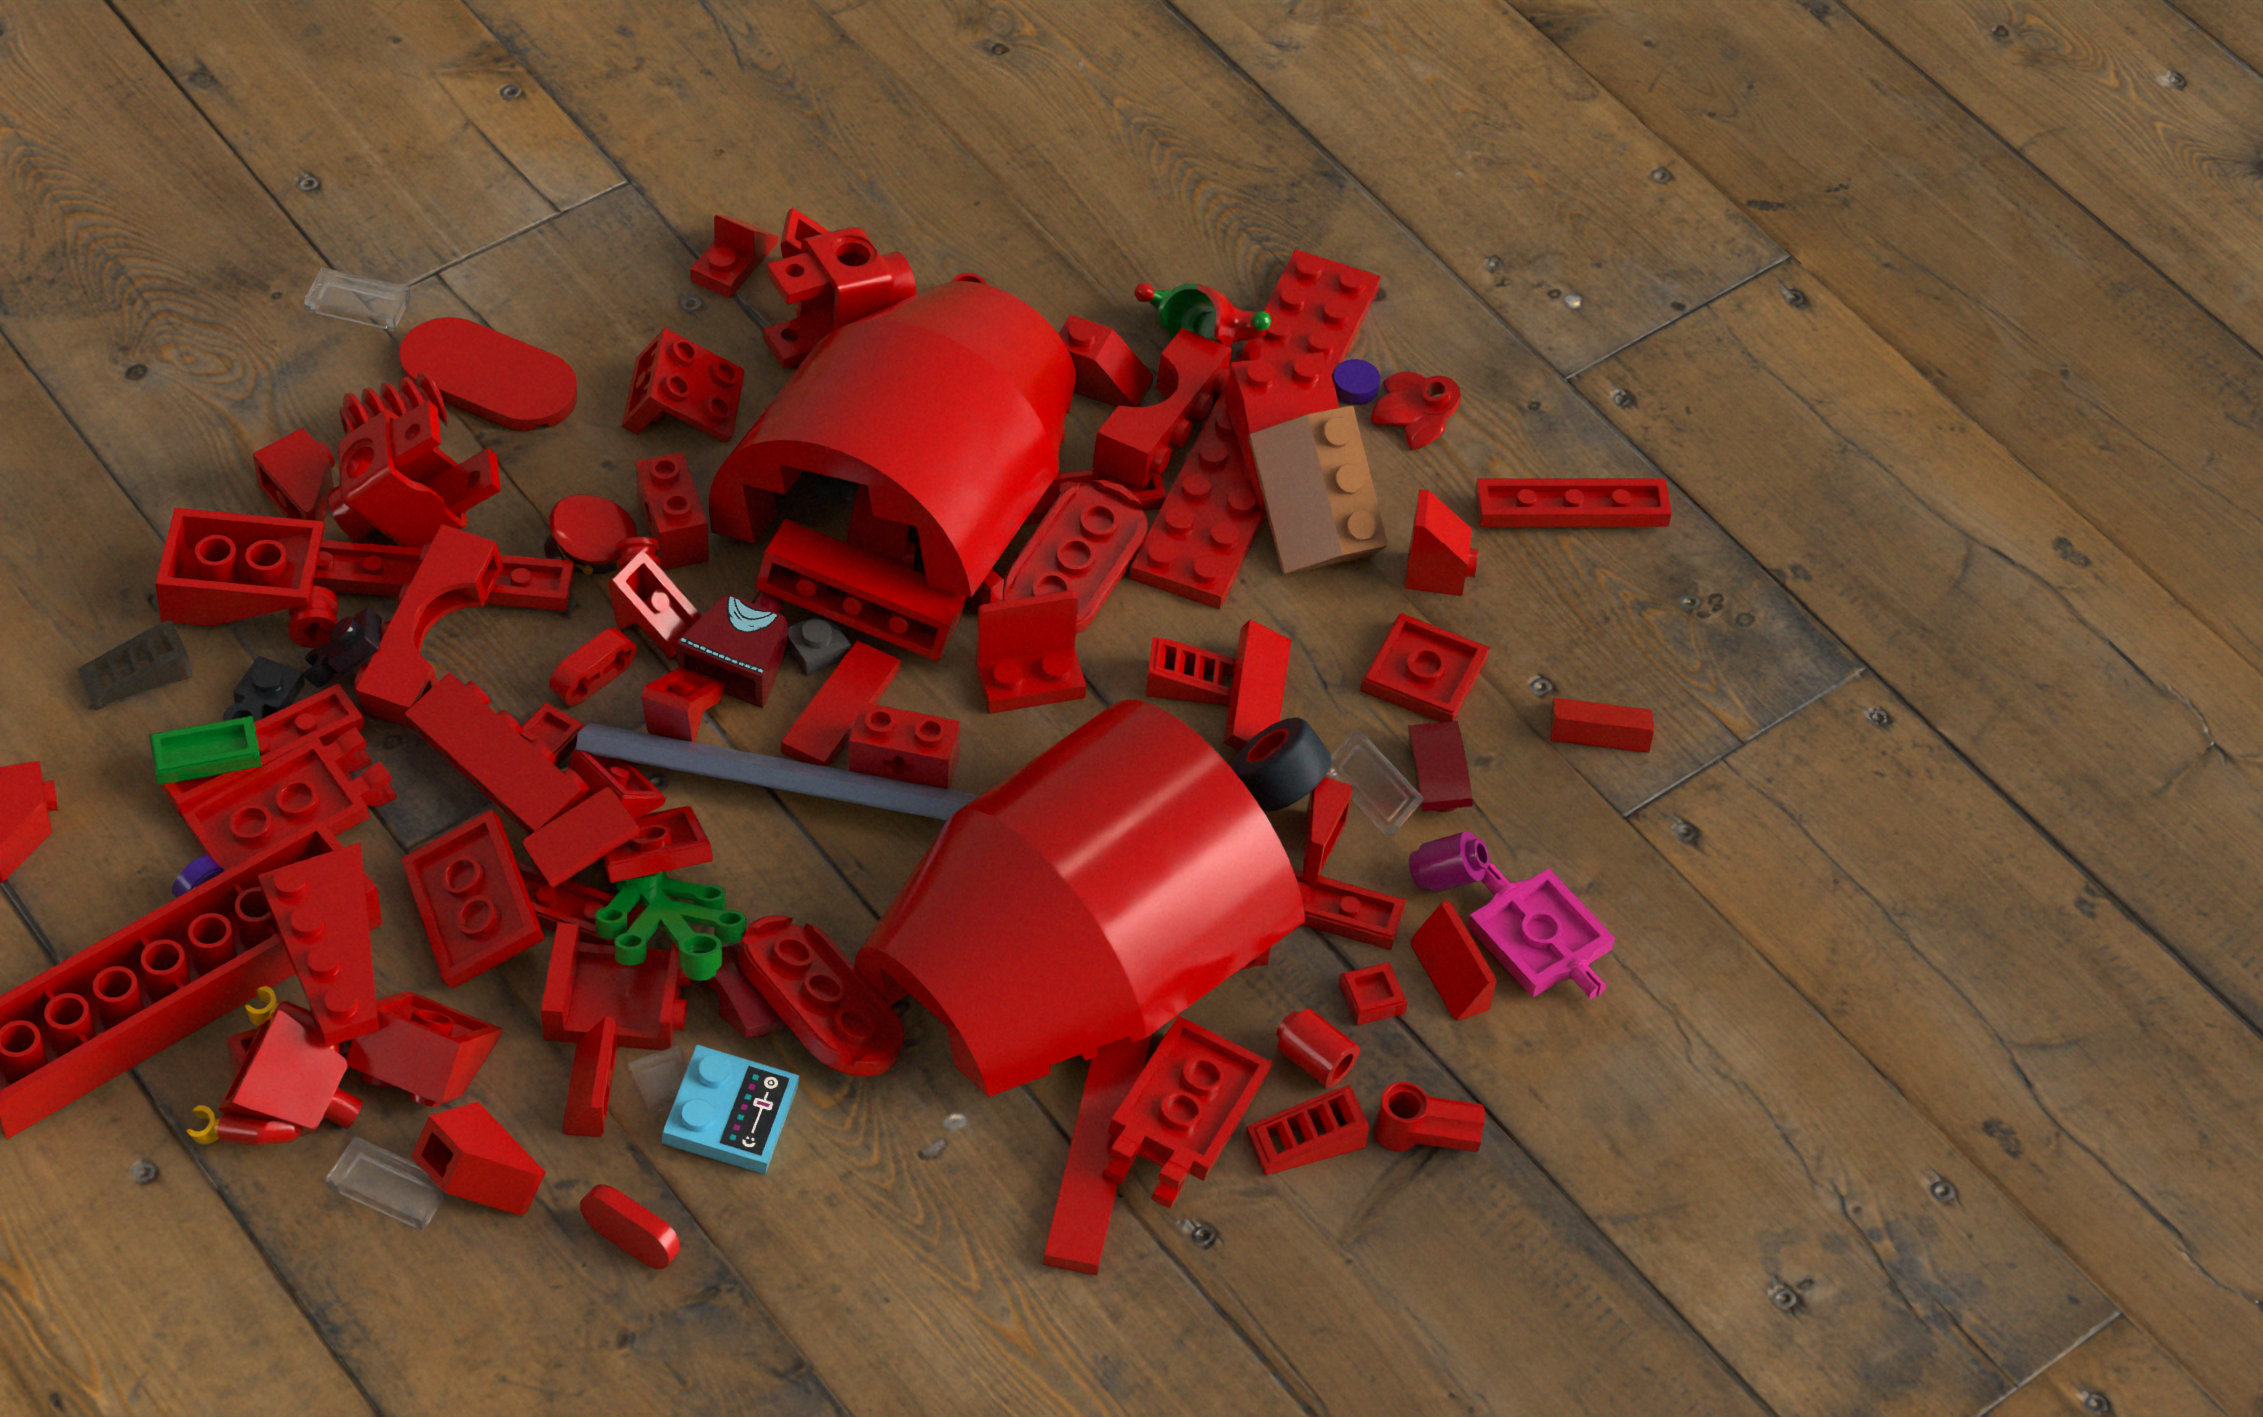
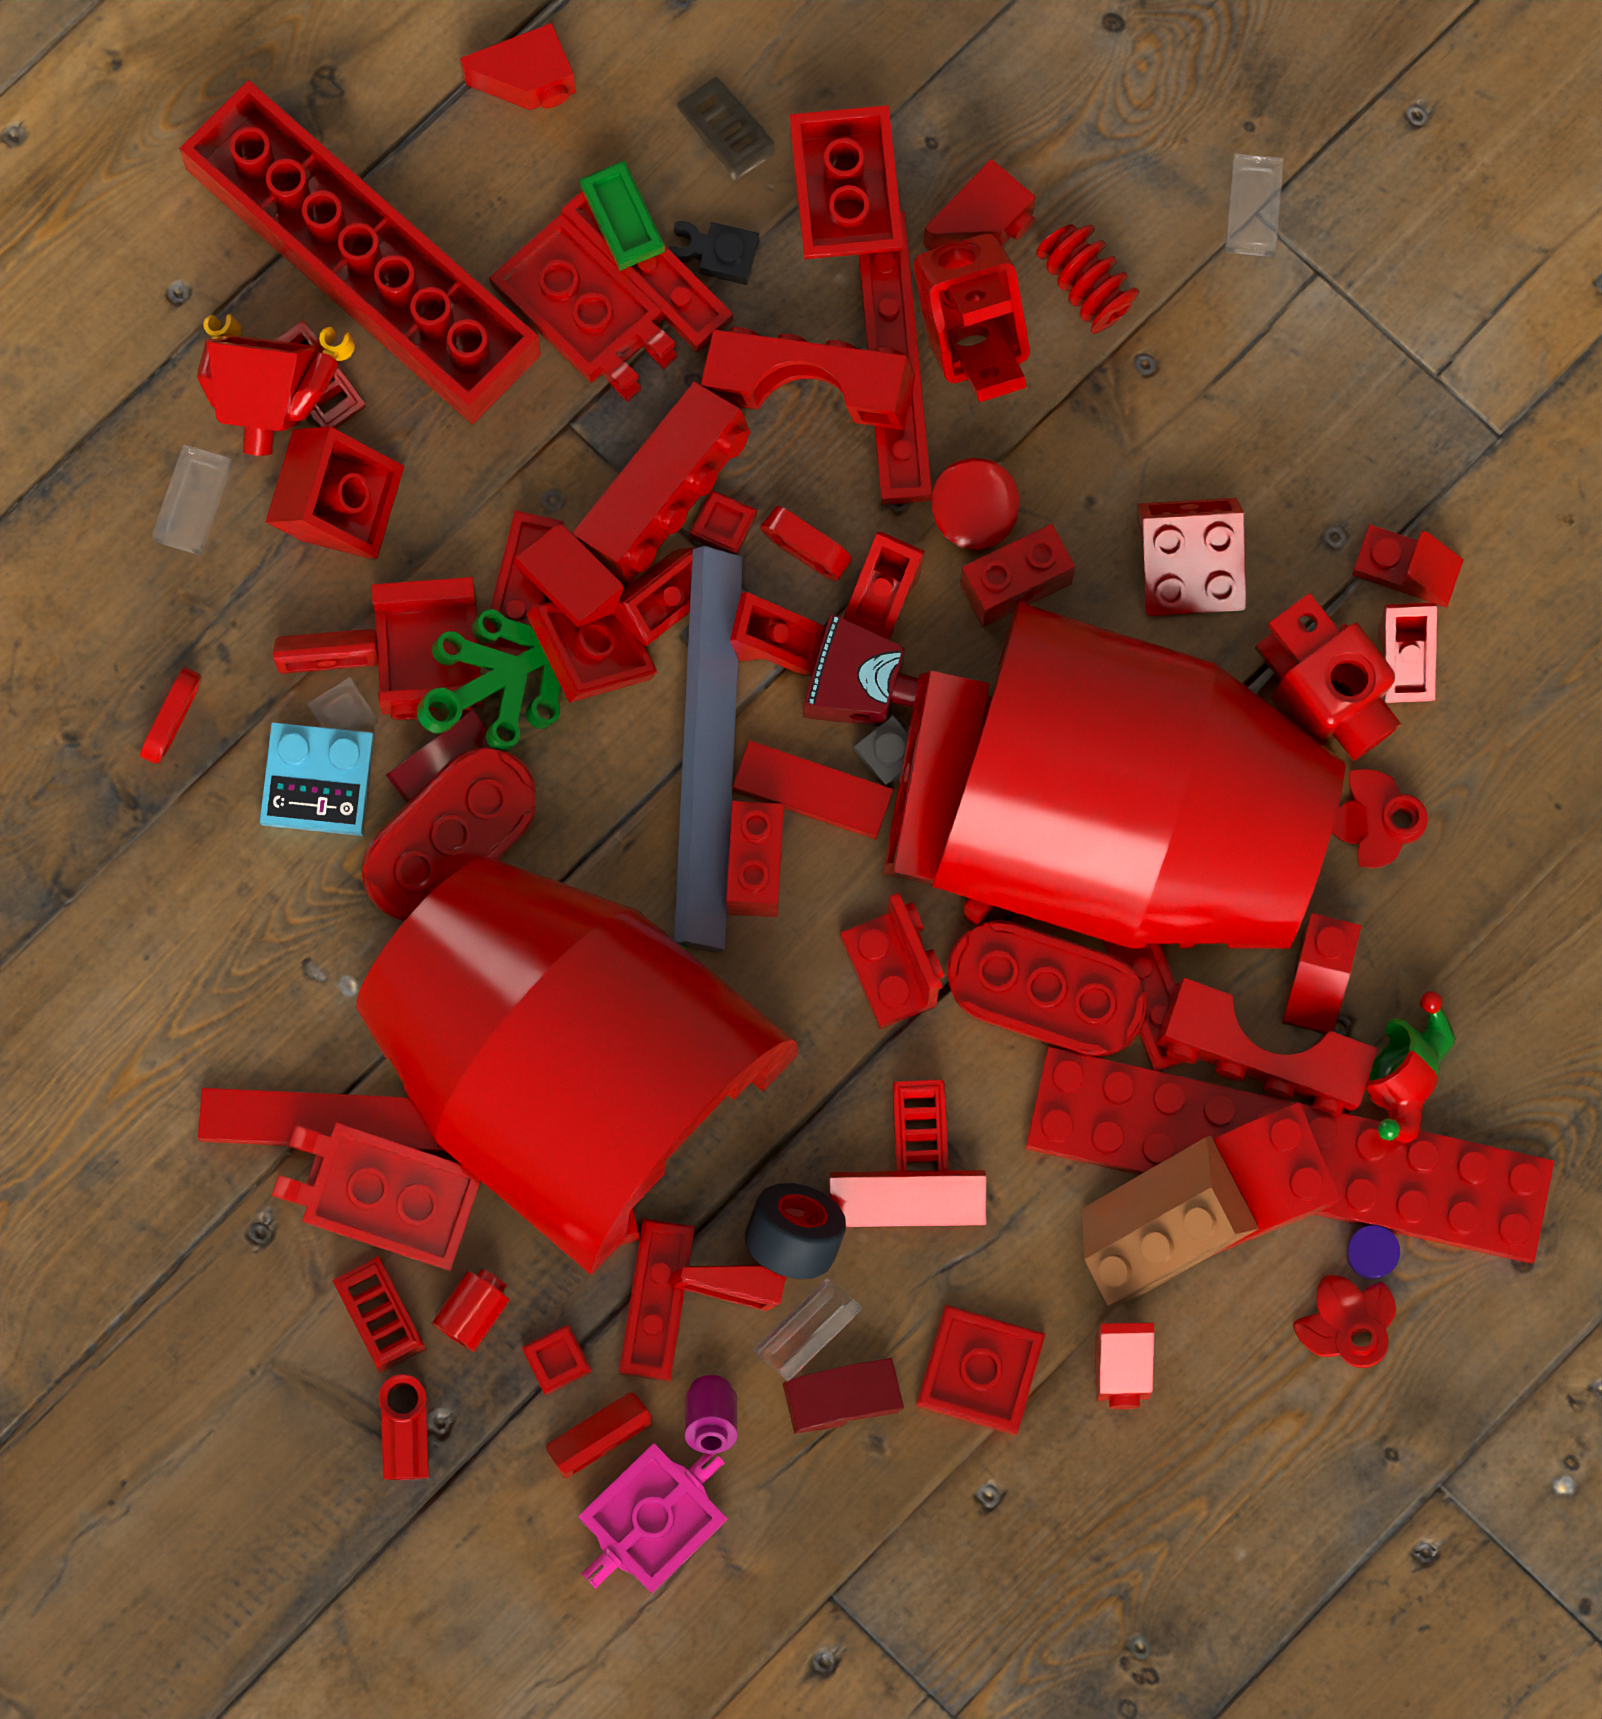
camera: 85 degrees right, 25 degrees up
(196, 874) = (480, 252): dark purple tile -> none
(314, 622) = (812, 273): red wheel -> none
(326, 934) = (404, 369): red wing -> none
(349, 645) = (770, 310): black plate -> none
(472, 899) = (498, 496): red plate -> none
(477, 1159) = (212, 566): red slope -> none
(490, 373) = (1179, 357): red tile -> none
(629, 547) = (942, 554): red bush -> none
(1573, 502) = (1239, 1506): red plate -> none
(1601, 725) = (944, 1561): red slope -> none

